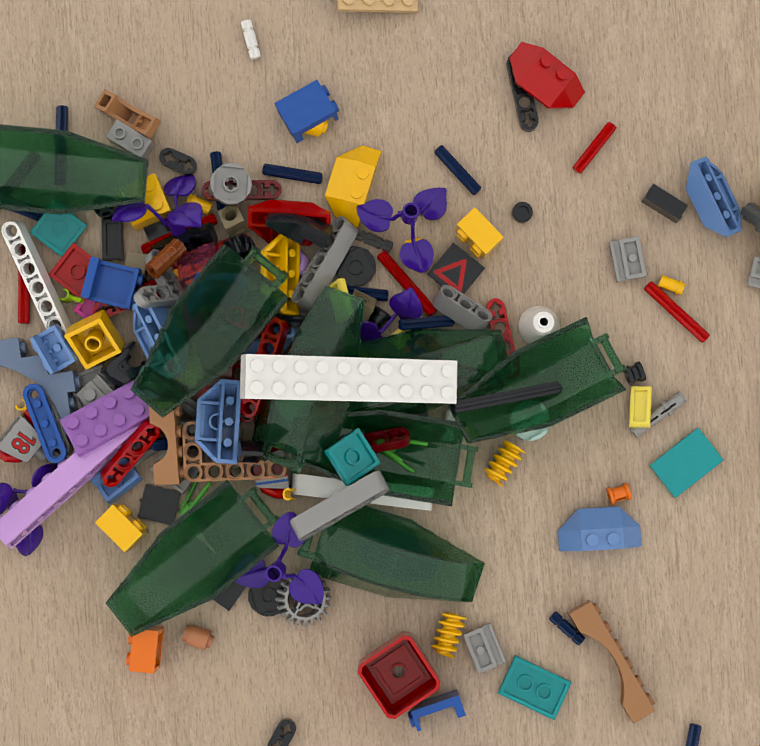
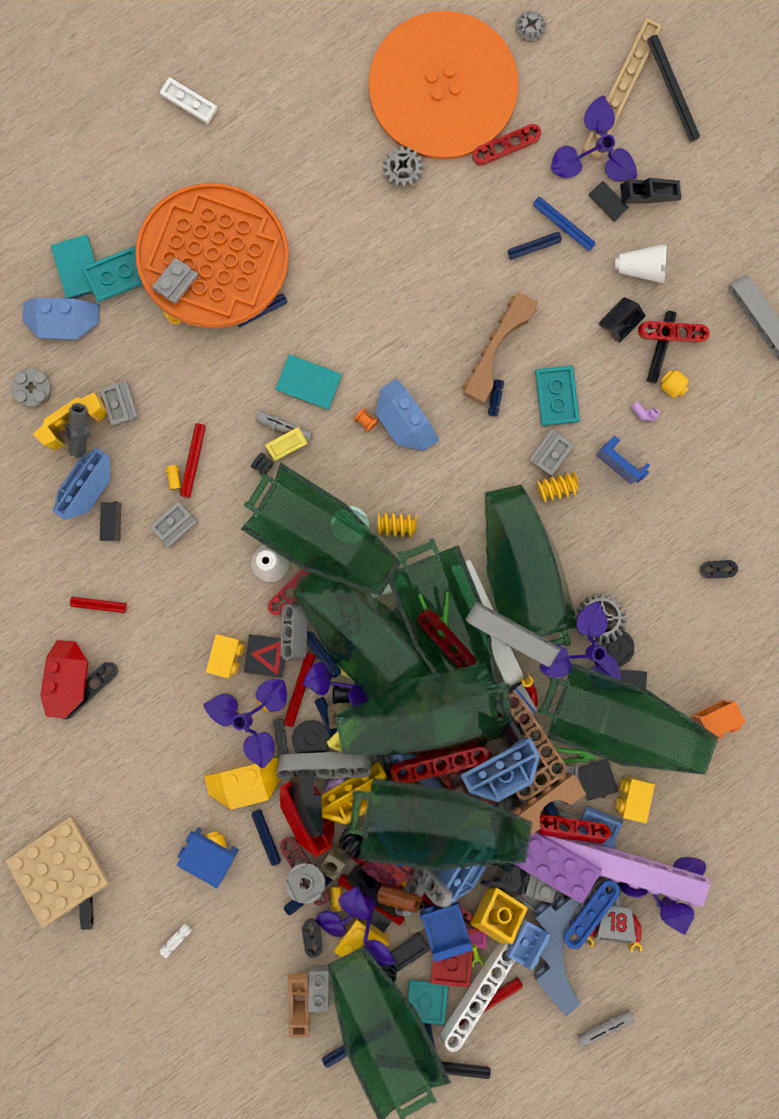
camera: 120 degrees left, 0 degrees up
(197, 637) = (682, 683): nougat brick -> none
(347, 379) = (410, 690): white brick -> none
(352, 456) = (467, 648): teal tile -> none
(394, 693) = (631, 503): red plate -> none
(456, 168) = (182, 704): dark blue axle -> none
(506, 397) = (347, 557): black axle -> none
(522, 212) = (185, 631): black tile -> none

